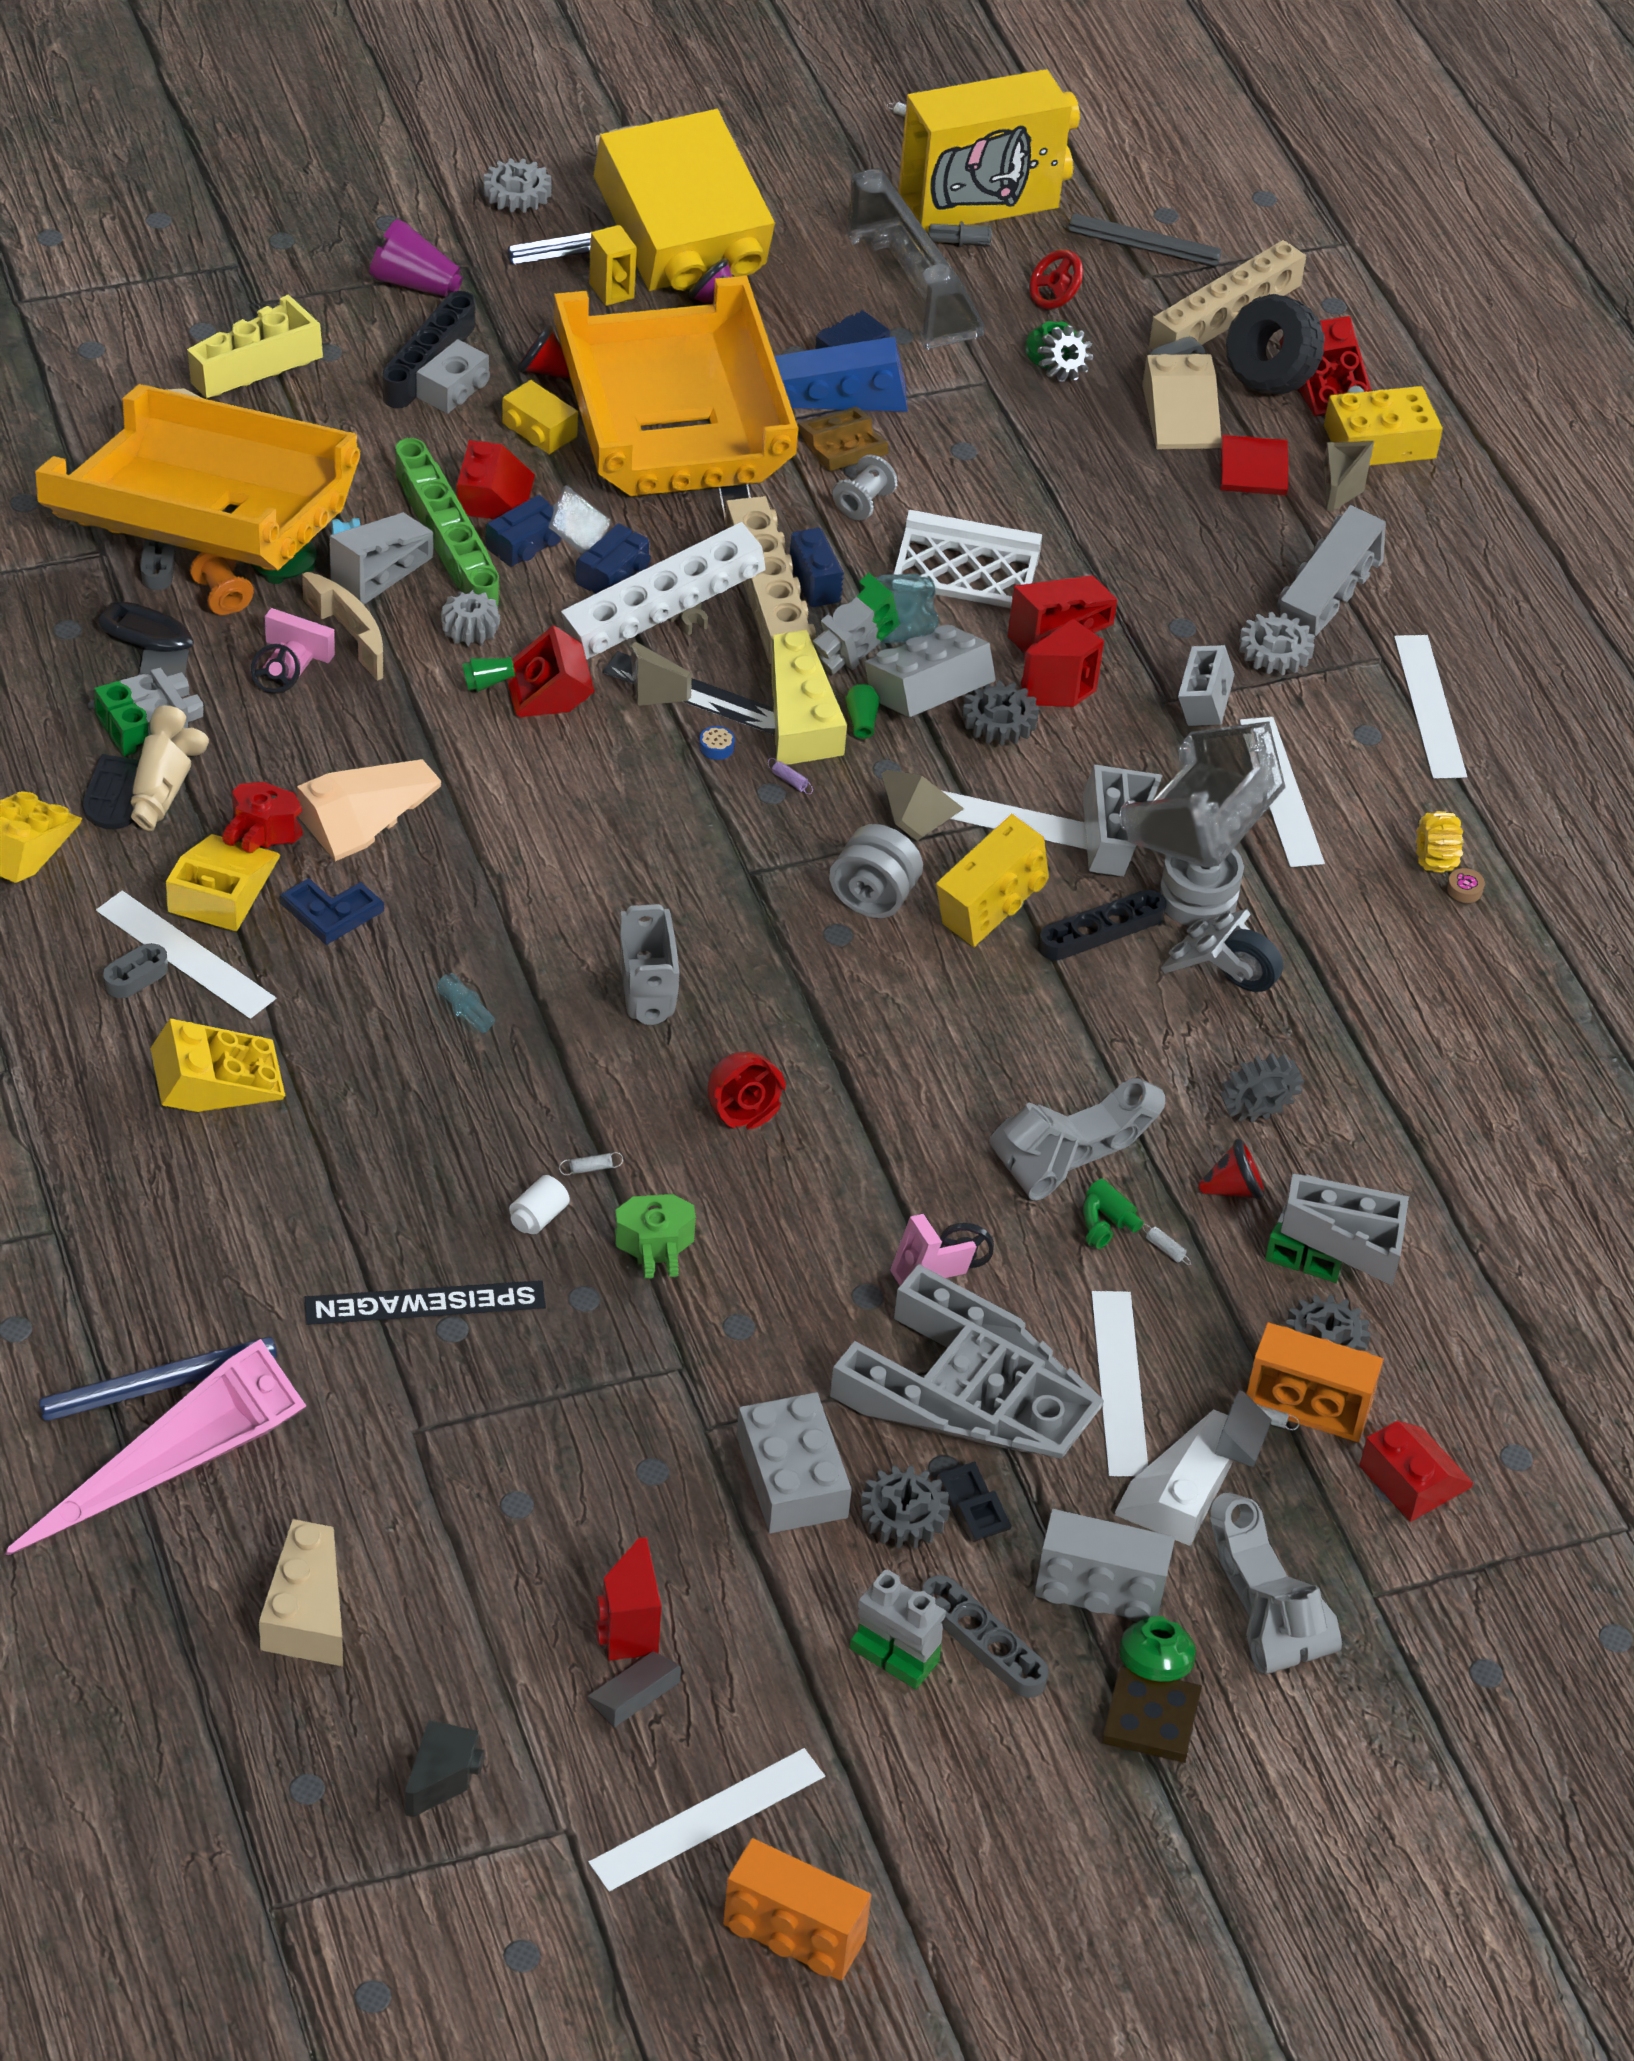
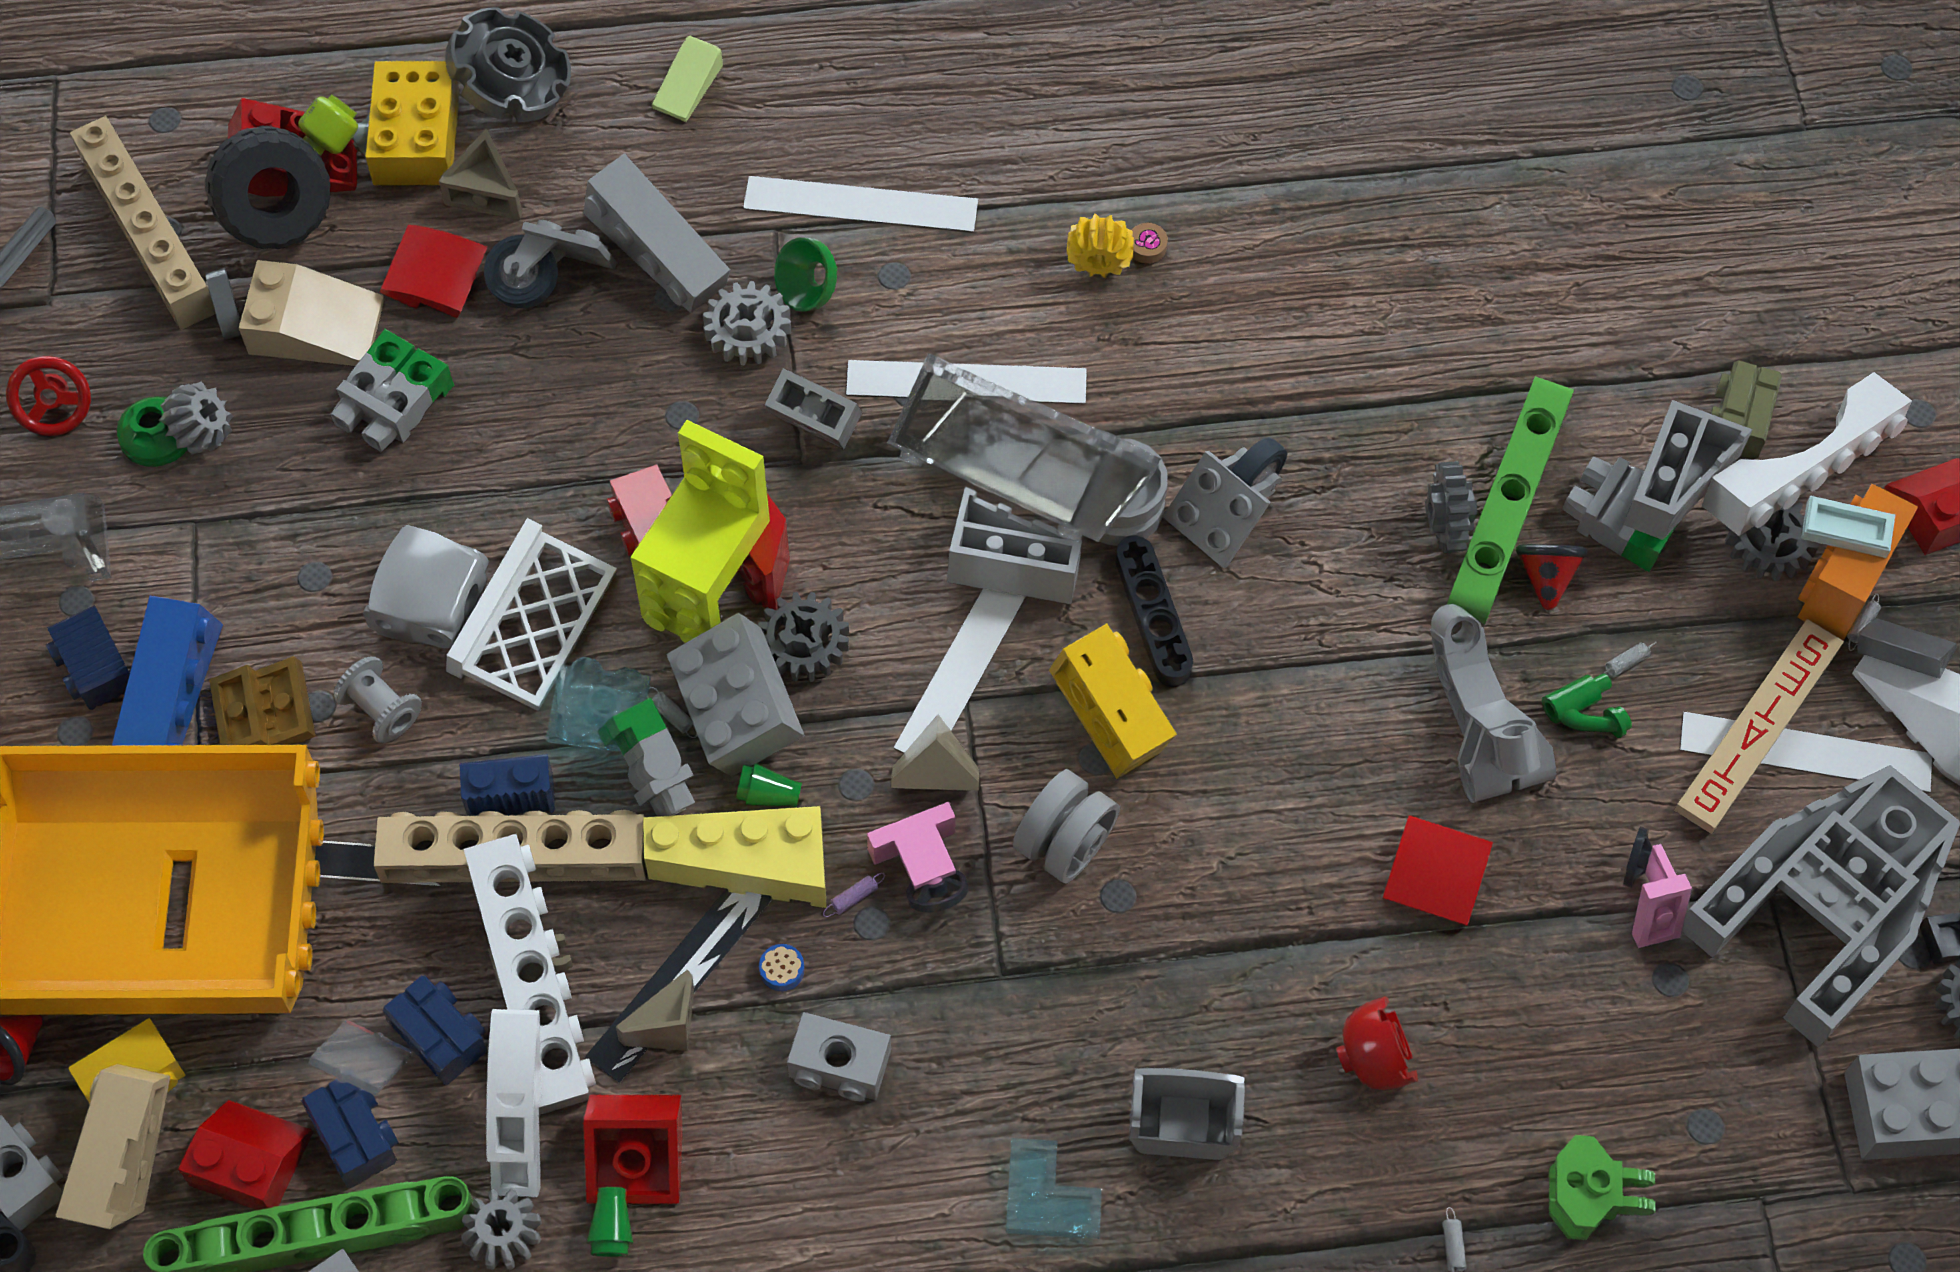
camera: 75 degrees left, 15 degrees up
(474, 406) = (115, 1148): none -> tan wedge
(560, 582) = (514, 1101): none -> white slope
(564, 903) = (1038, 1204): none -> clear light blue plate
(649, 778) = (823, 1037): none -> light grey brick
(833, 792) = (923, 855): none -> bright pink piece
(918, 1123) = (1437, 870): none -> red slope
(967, 489) = (425, 588): none -> light grey piece
(1040, 597) = (701, 534): none -> neon yellow bracket
(1131, 1339) = (1758, 726): none -> tan tile
(1132, 454) = (390, 390): none -> light grey hips
(1280, 506) = (524, 267): none -> plate
(1298, 1143) = (1502, 518): none -> bright green beam
(1326, 1336) = (1848, 526): none -> light aqua tile
(1336, 670) = (795, 274): none -> green piece
(1347, 366) = (328, 124): none -> lime head
(1457, 1307) = (1749, 401): none -> olive brick
(1459, 465) = (508, 64): none -> dark grey piece
(1473, 1387) = (1755, 489): none -> white arch
(1503, 581) = (688, 78): none -> yellowish green slope

